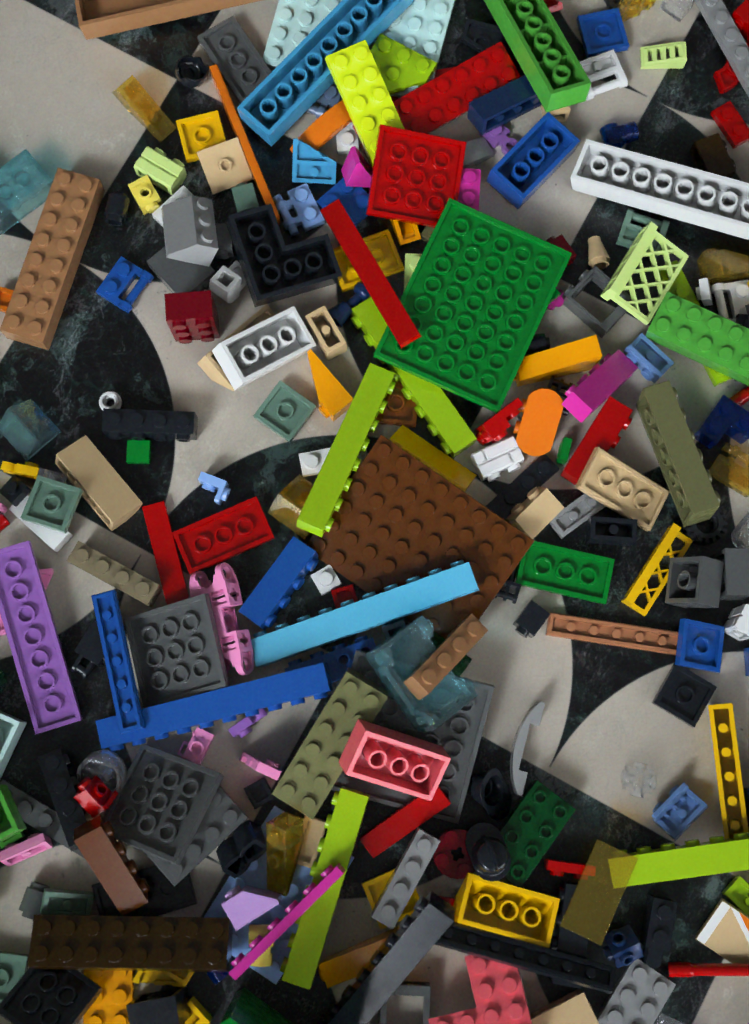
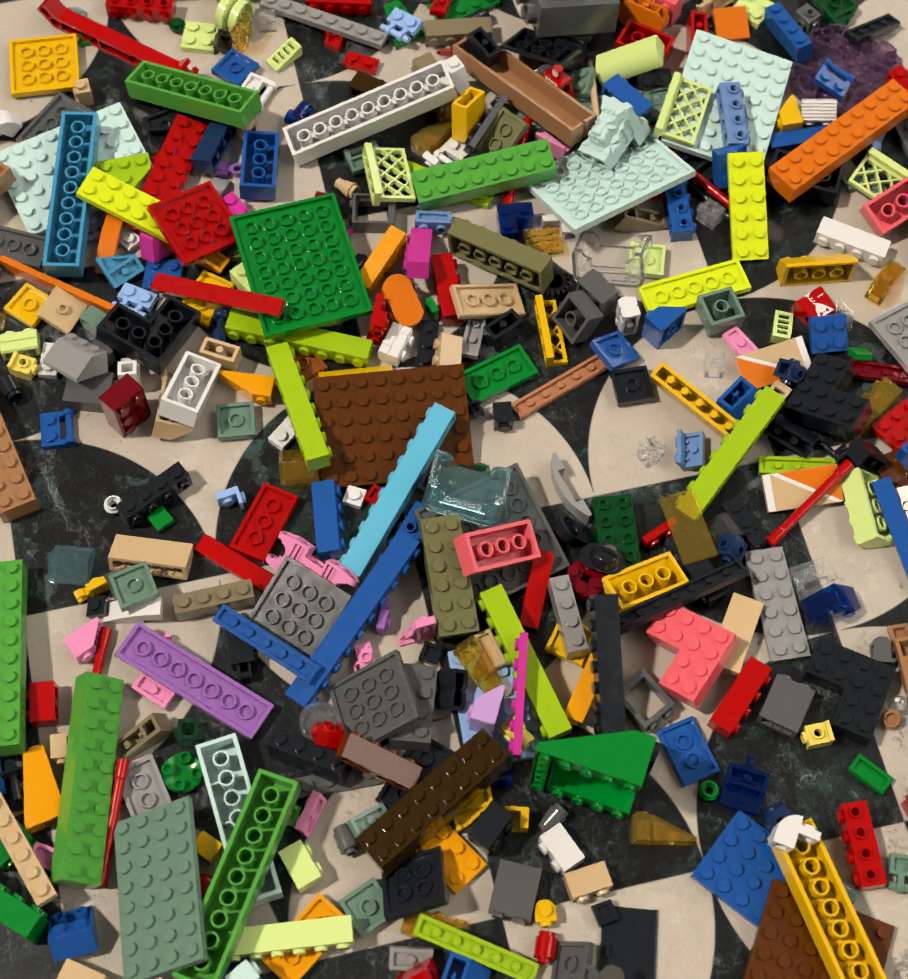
camera: 40 degrees left, 15 degrees down
(445, 657) = (471, 467): medium nougat arch -> none

